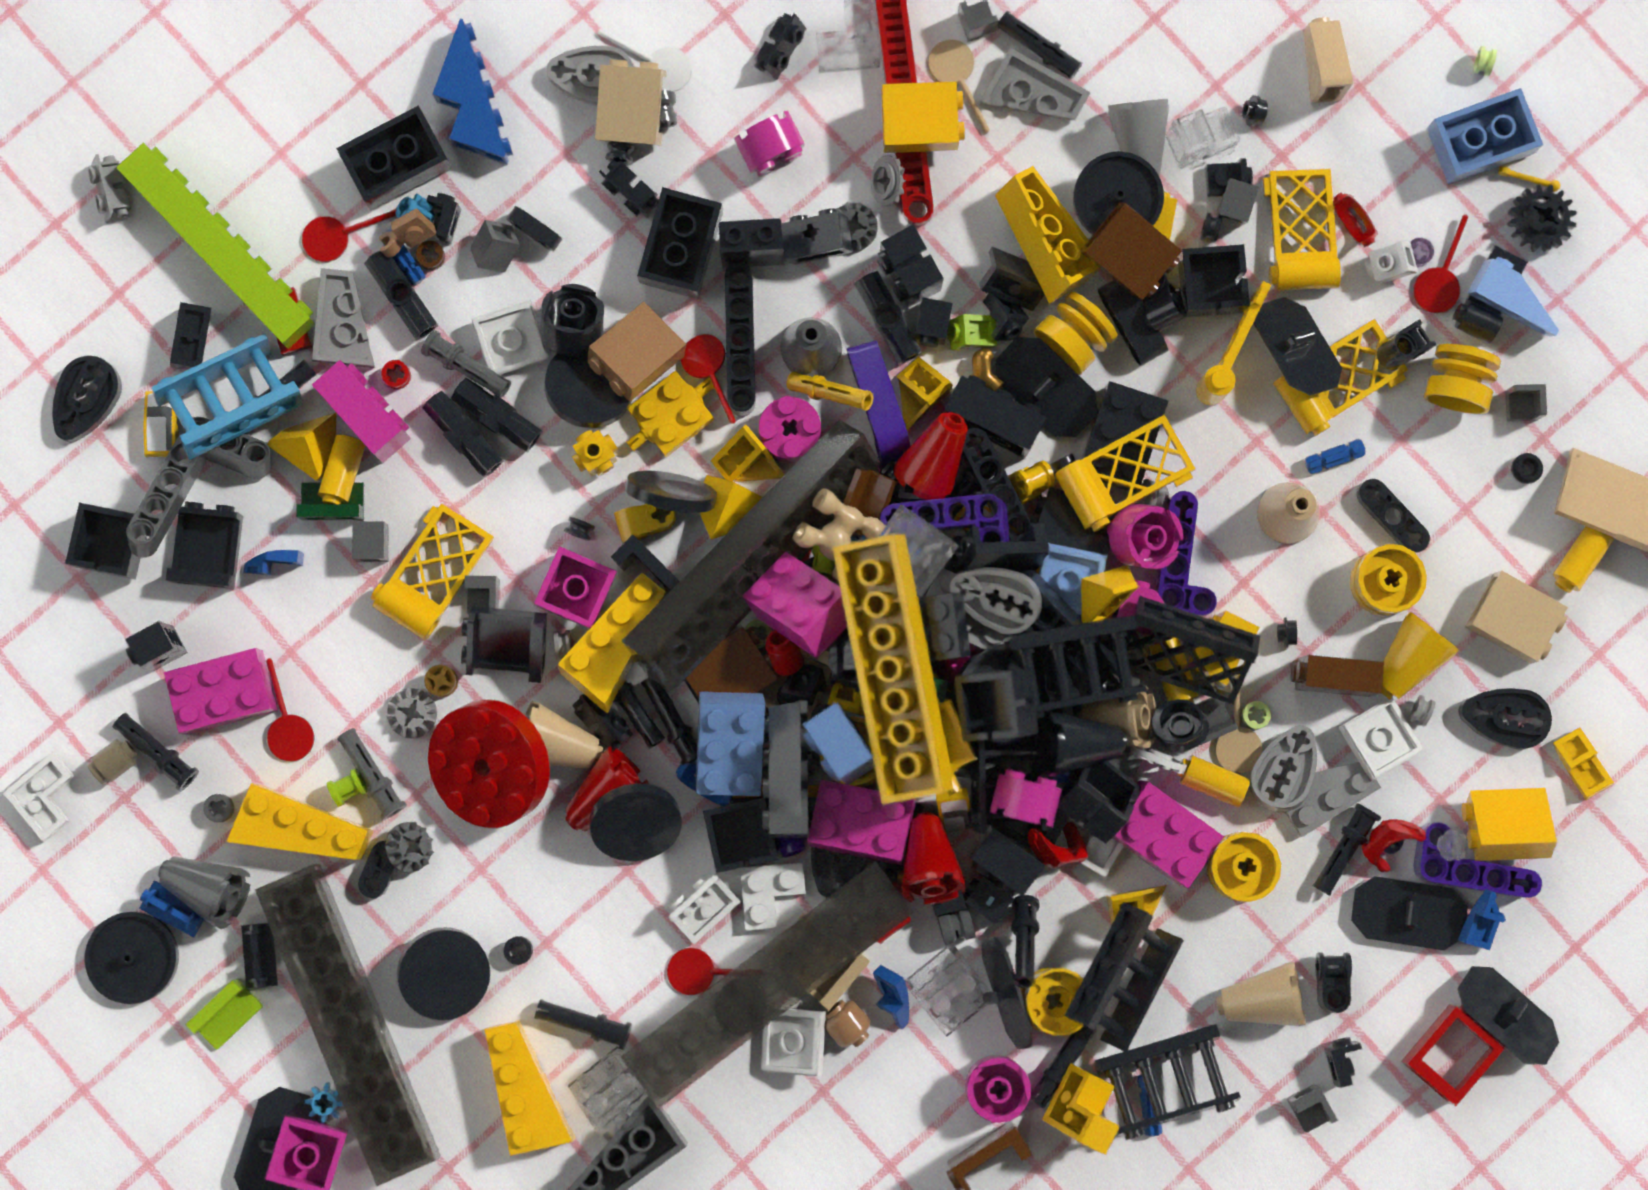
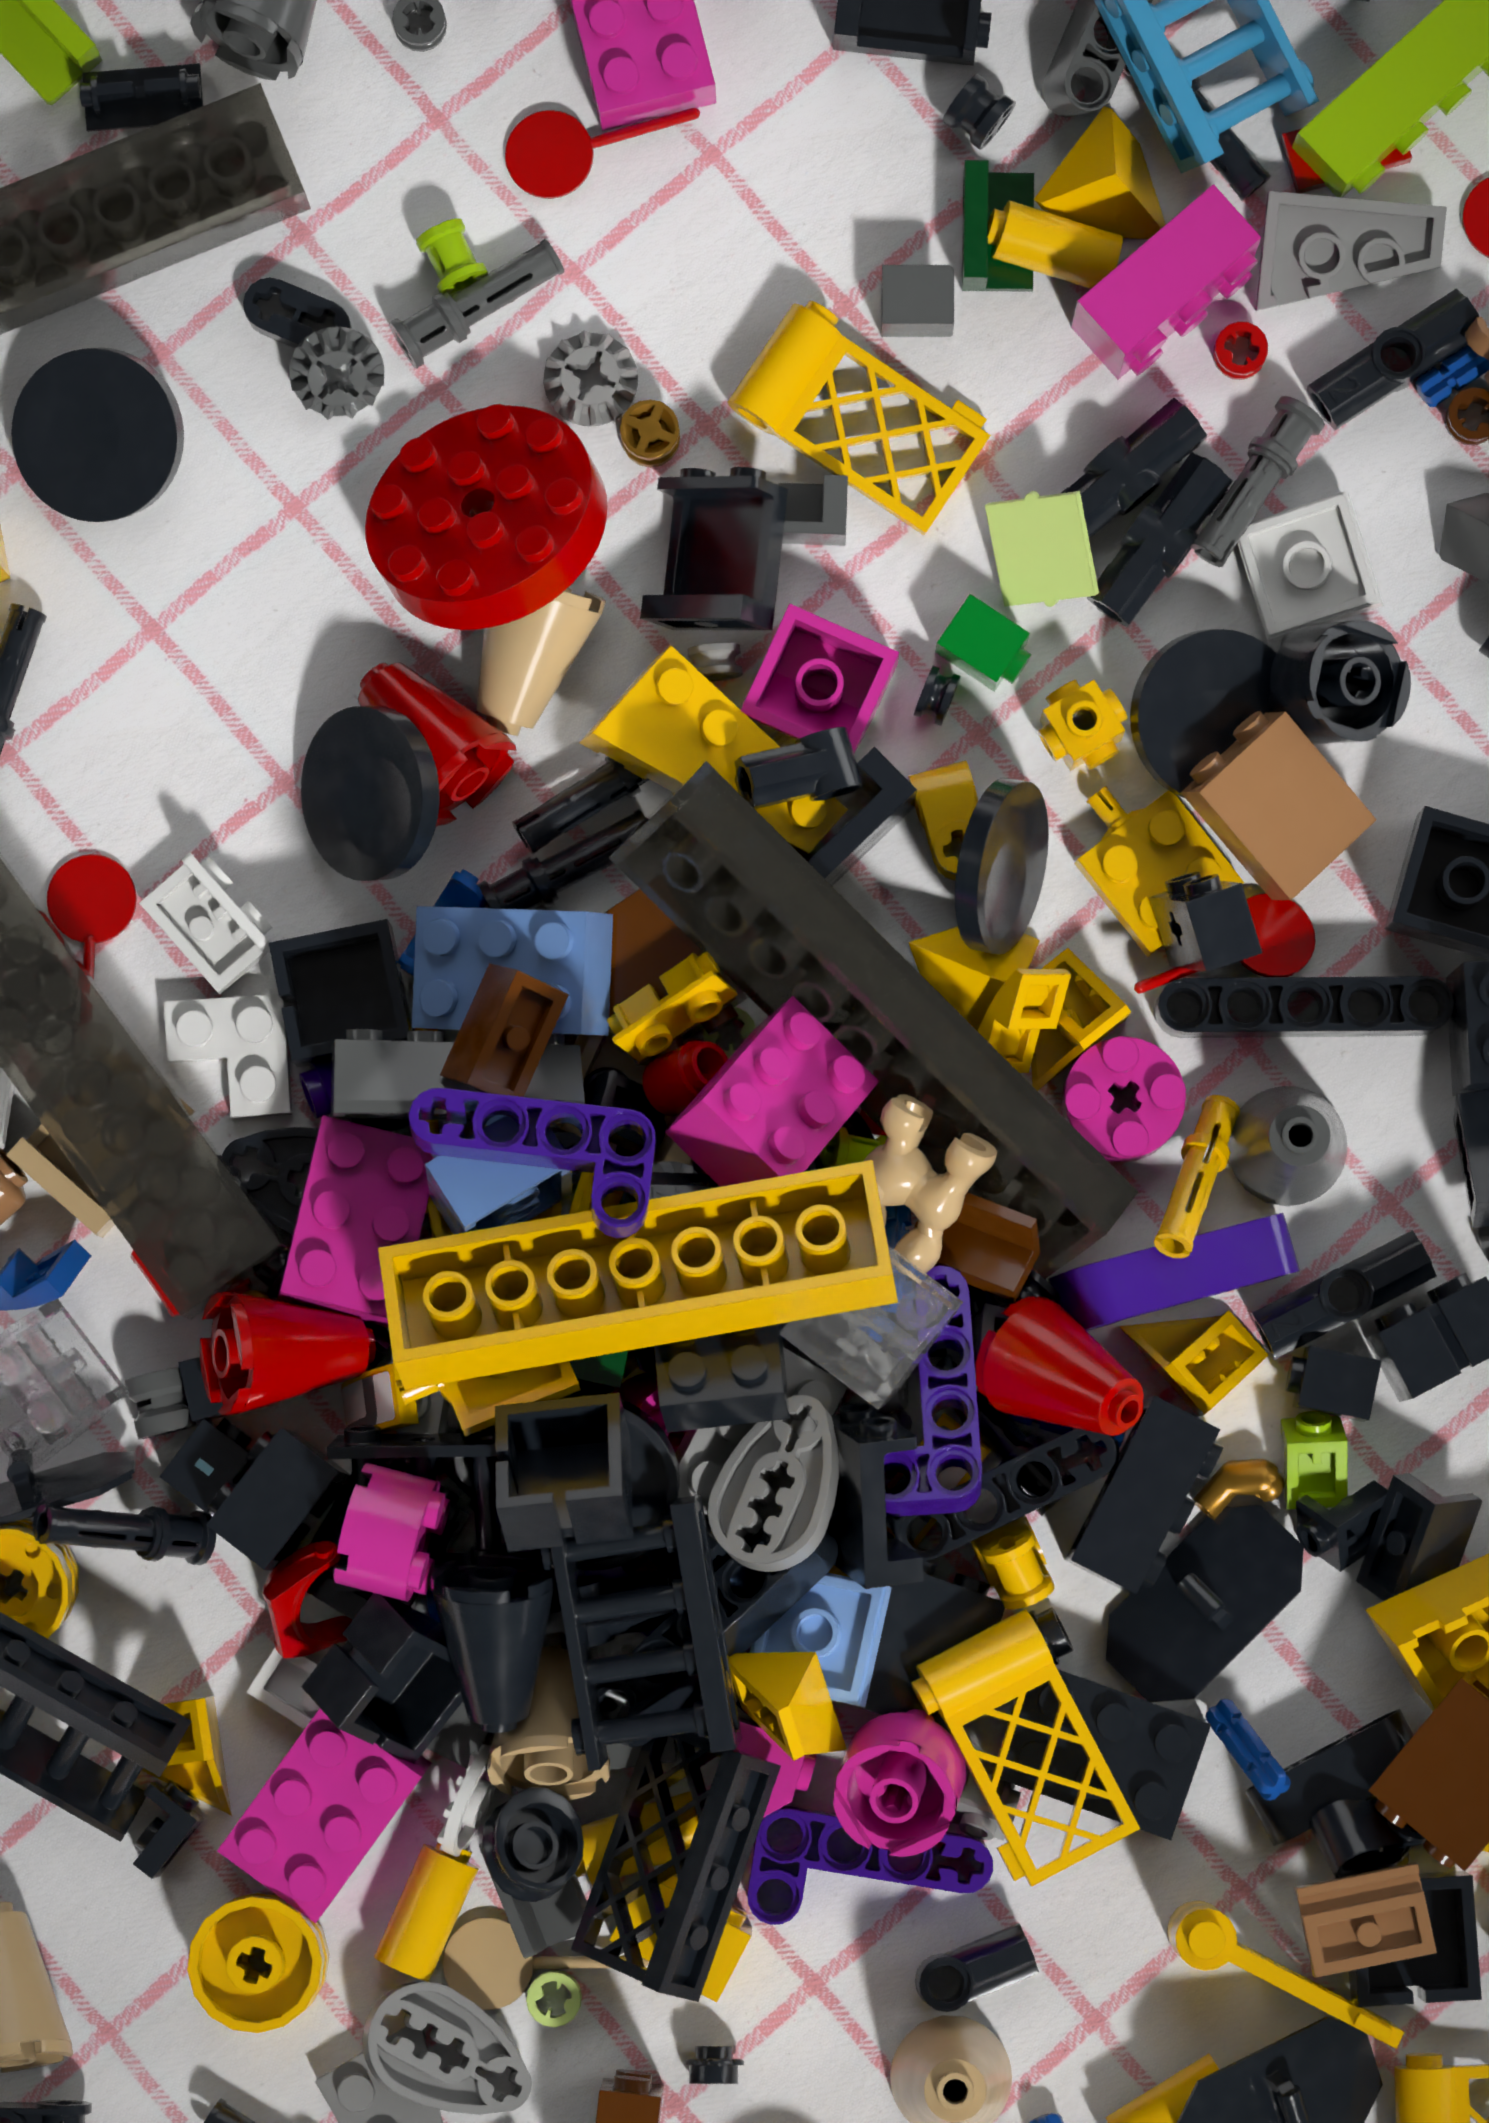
camera: 100 degrees right, 0 degrees up
(262, 563) = (880, 102): blue slope -> none
(269, 511) = (979, 111): none -> black wheel
(292, 825) = (382, 154): yellow wedge -> none
(502, 474) = (1042, 548): none -> yellowish green piece
(518, 940) = (157, 575): black bush -> none
(552, 504) = (984, 644): none -> green brick
(612, 728) = (553, 755): black hinge -> none
(622, 590) = (812, 767): none -> black piece
(700, 386) = (1204, 922): none -> black brick
(742, 648) = (695, 994): none -> yellow hinge
(744, 481) = (1020, 1009): none -> yellow slope
(766, 744) = (504, 1032): none -> reddish brown panel
(830, 721) = (532, 1148): none -> dark purple beam
(1080, 327) = (1309, 1662): yellow wheel -> none
(1120, 363) = (1248, 1749): none -> blue axle
(1181, 917) = (165, 1839): none -> black bracket
(1207, 301) = (1365, 1920): none -> medium nougat plate
(1234, 497) = (982, 1967): none -> black piece

